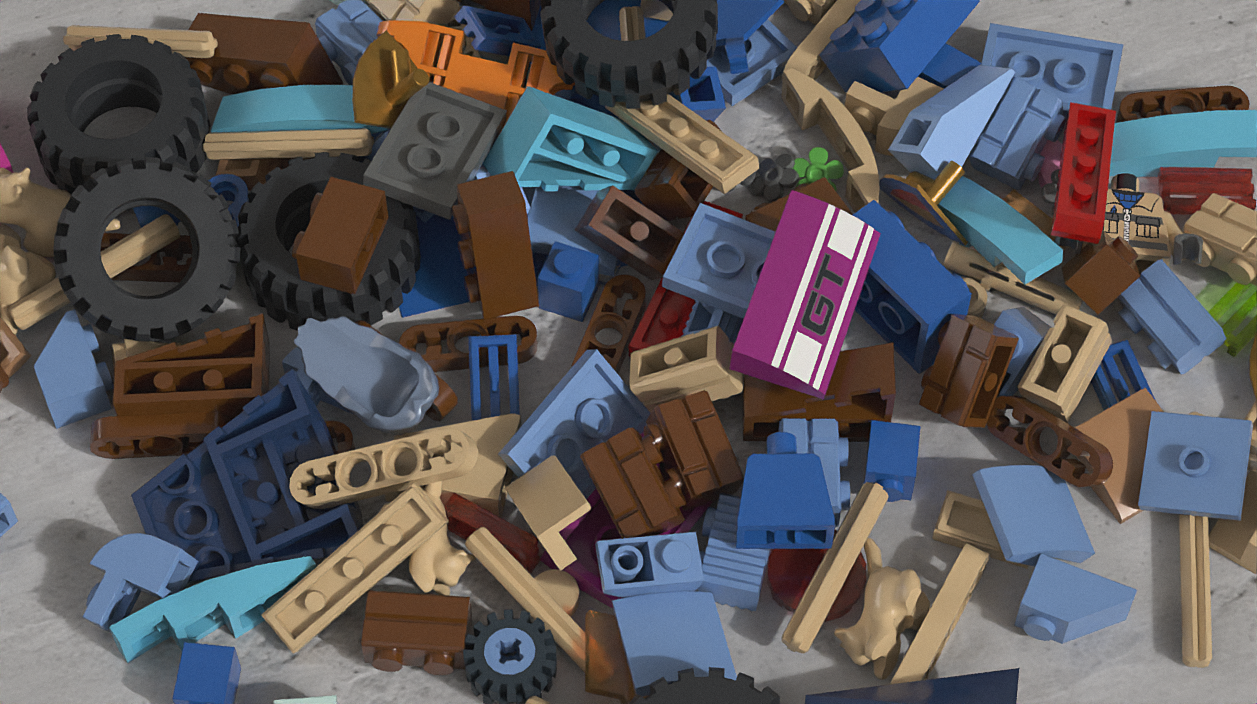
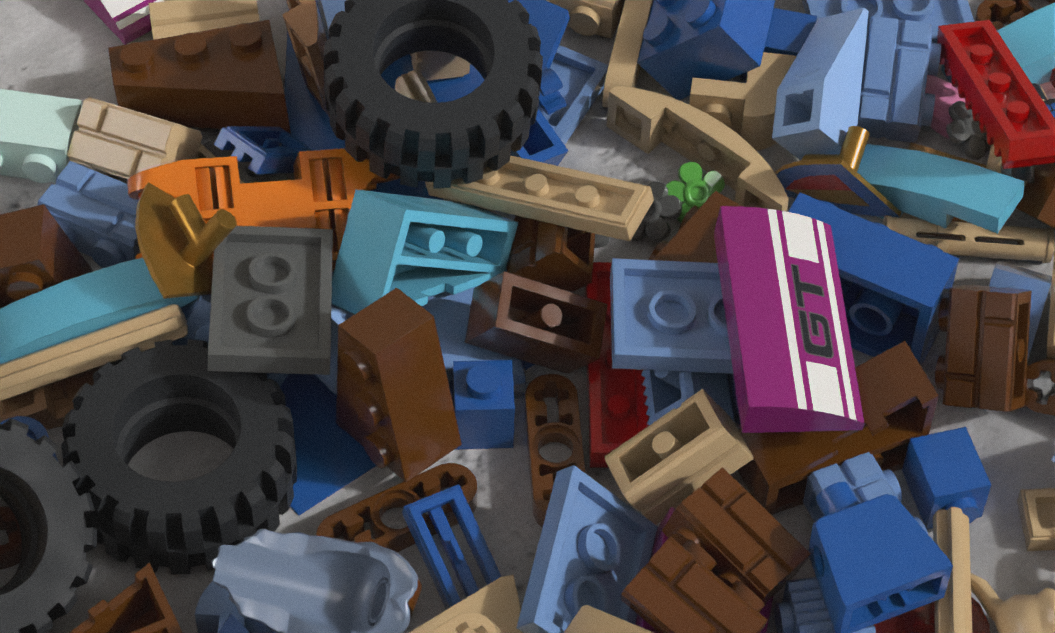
camera: 25 degrees left, 5 degrees down
(341, 235) = (213, 434): reddish brown brick -> none

